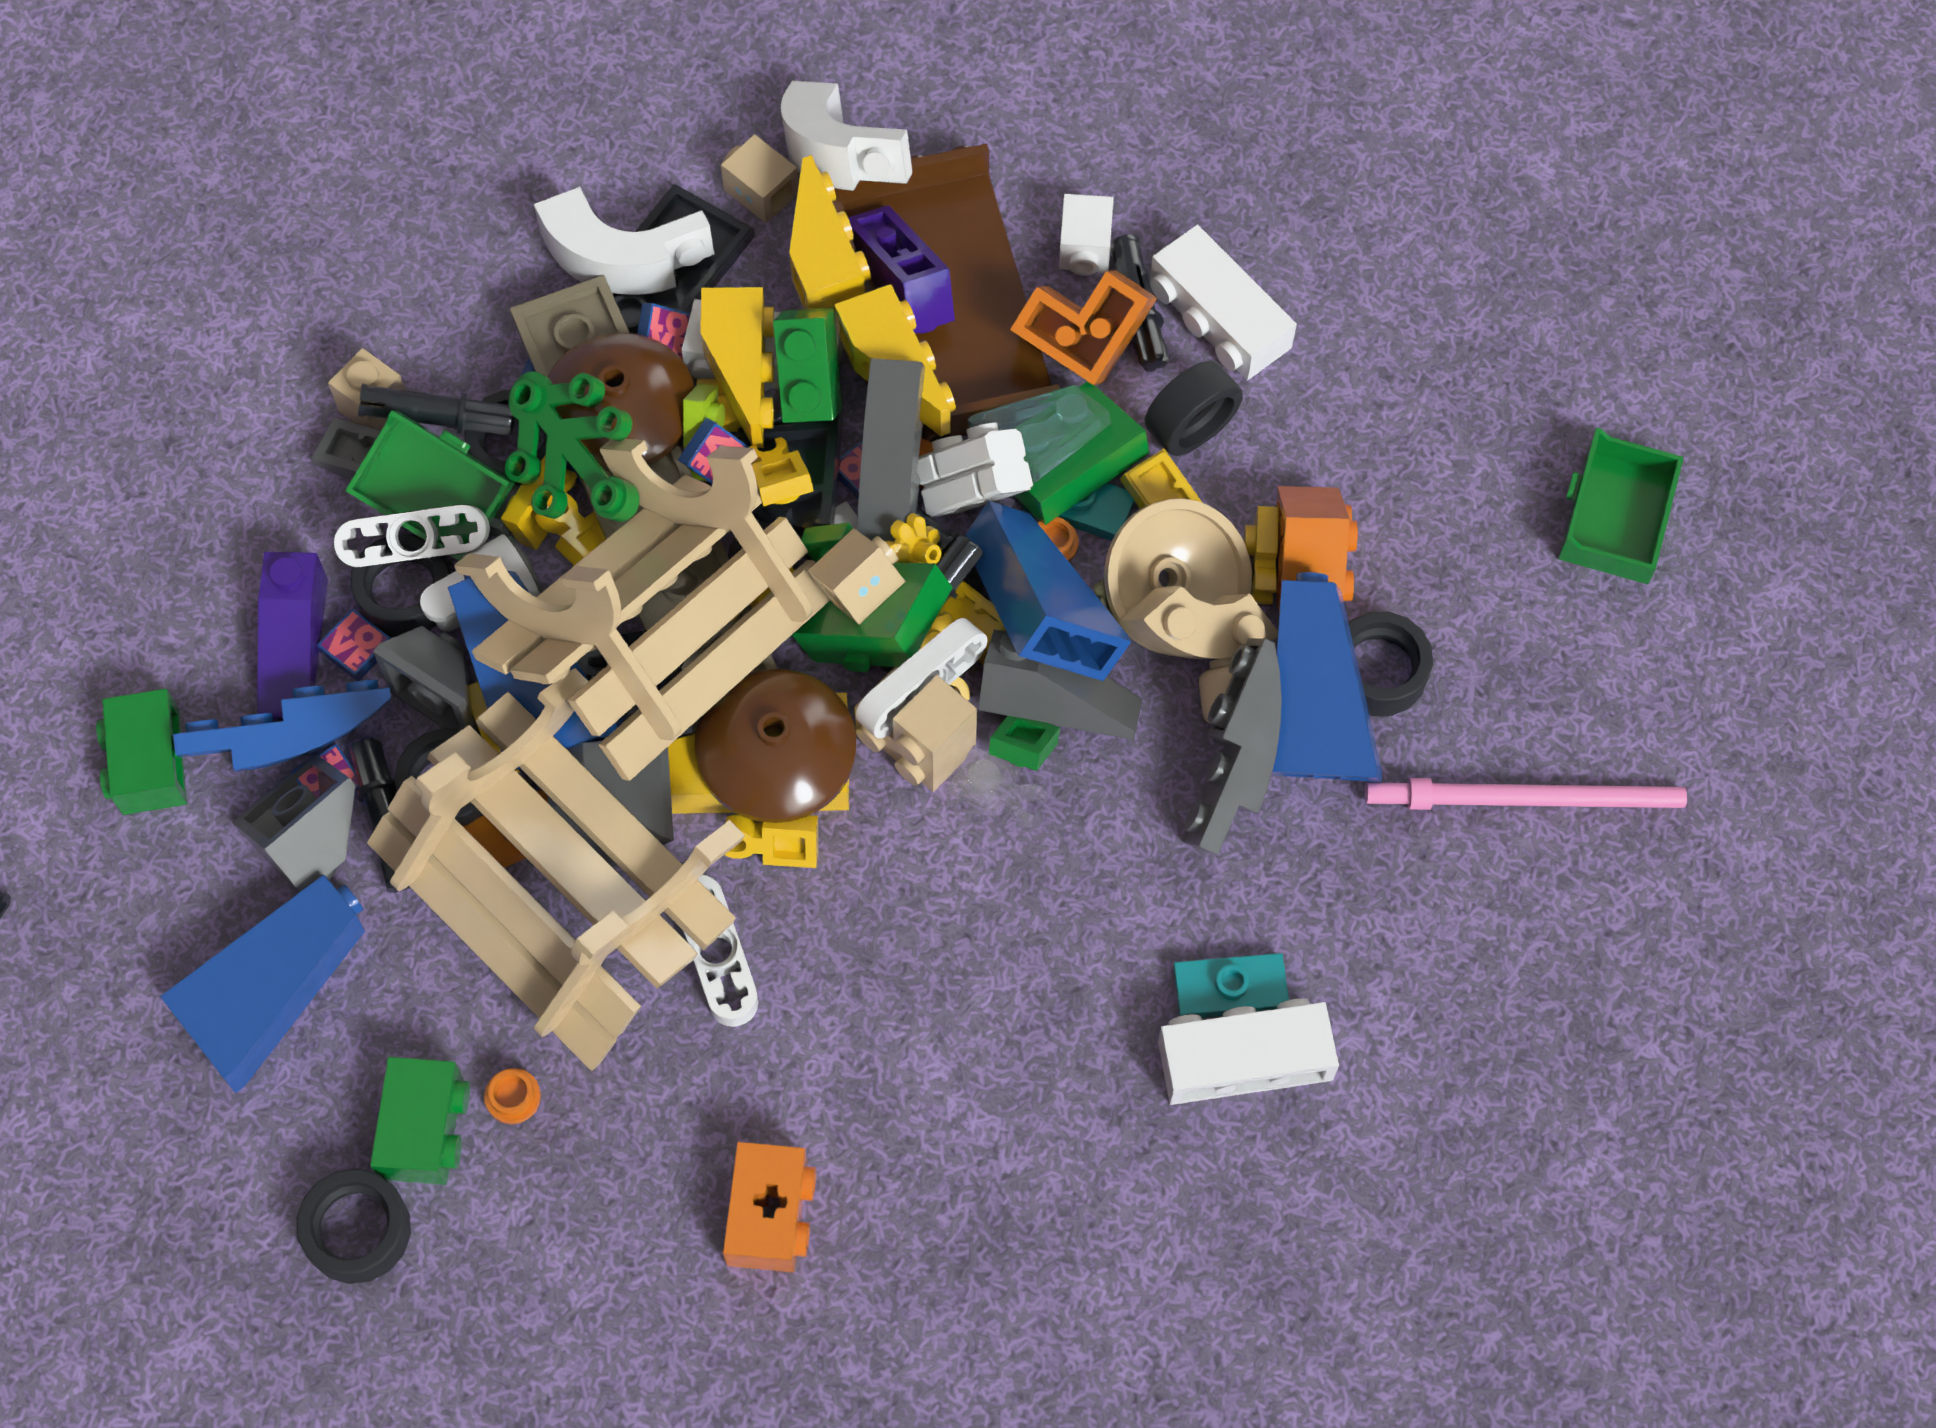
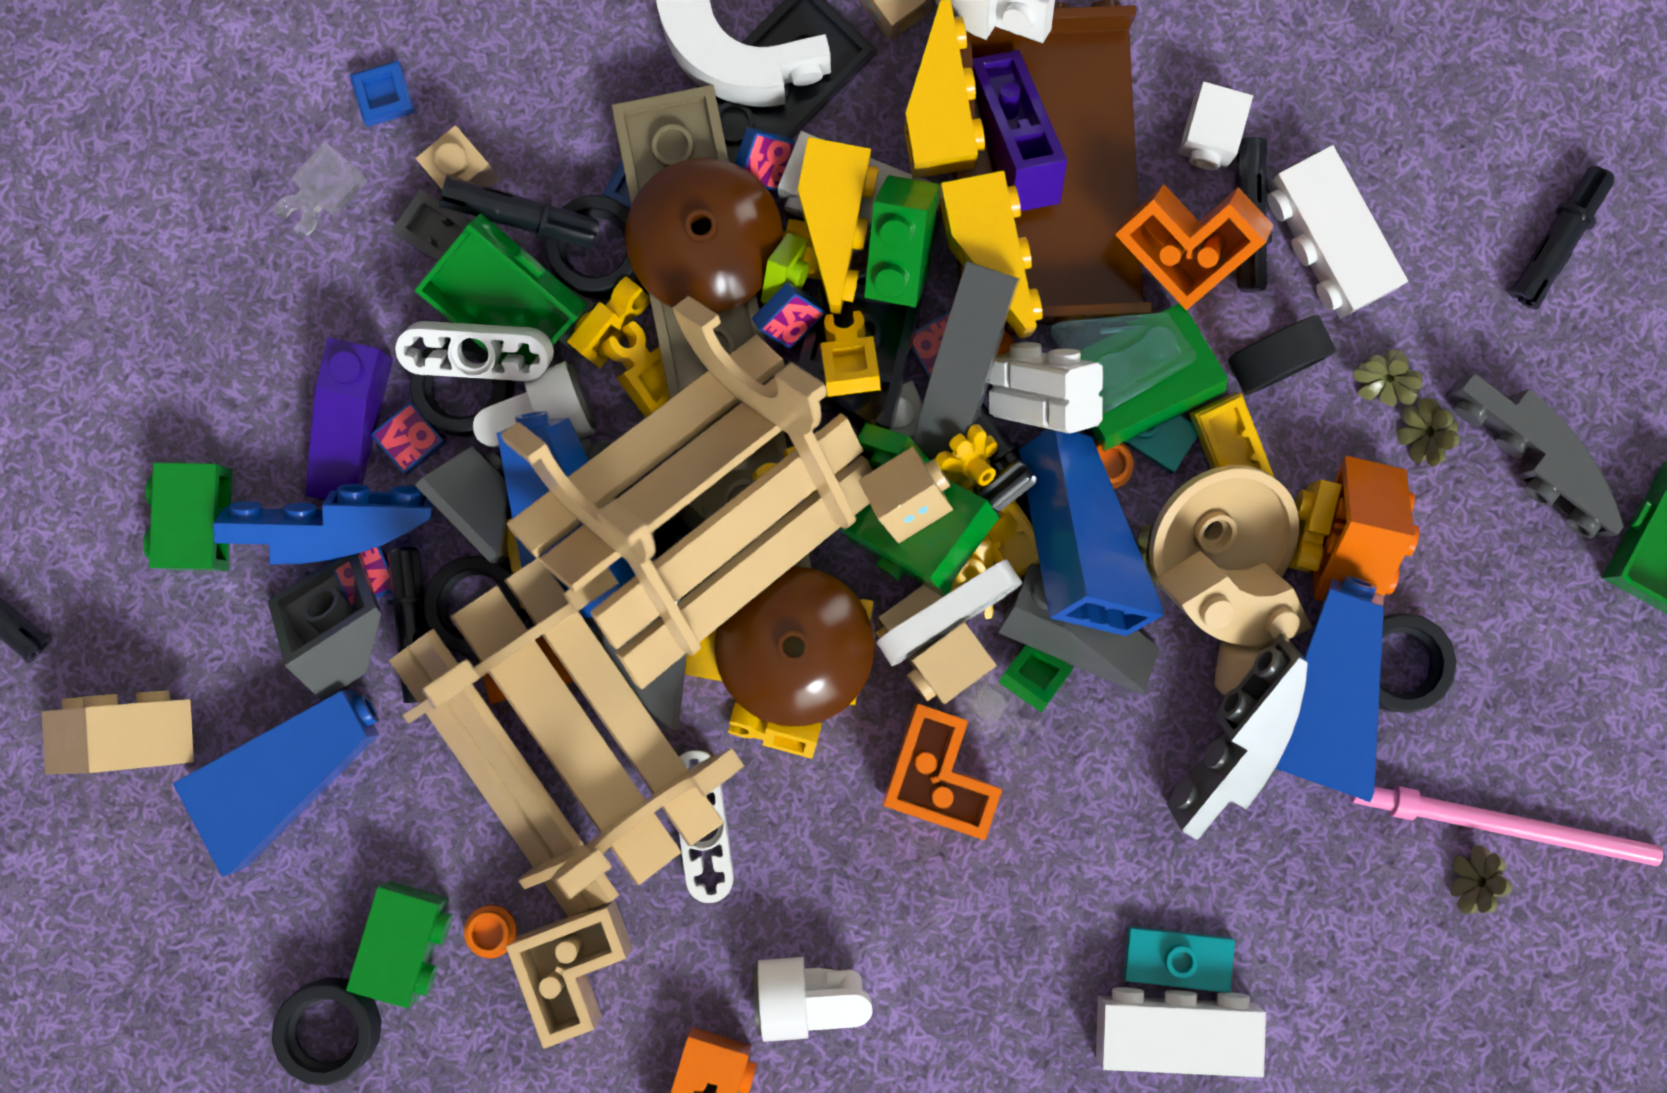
camera: 10 degrees right, 20 degrees up
(91, 961) = (102, 736): none -> tan brick
(236, 432) = (326, 183): none -> clear plate
(283, 348) = (382, 93): none -> blue tile
(534, 404) = (617, 229): green plant -> none
(589, 1094) = (555, 966): none -> tan brick
(837, 1094) = (796, 1000): none -> white piece
(940, 857) = (924, 778): none -> orange brick
(1303, 417) = (1388, 378): none -> olive plant
(1352, 454) = (1429, 431): none -> olive plant
(1441, 255) = (1557, 246): none -> black axle
(1483, 458) = (1557, 463): none -> dark grey slope
(1514, 849) = (1479, 881): none -> olive plant

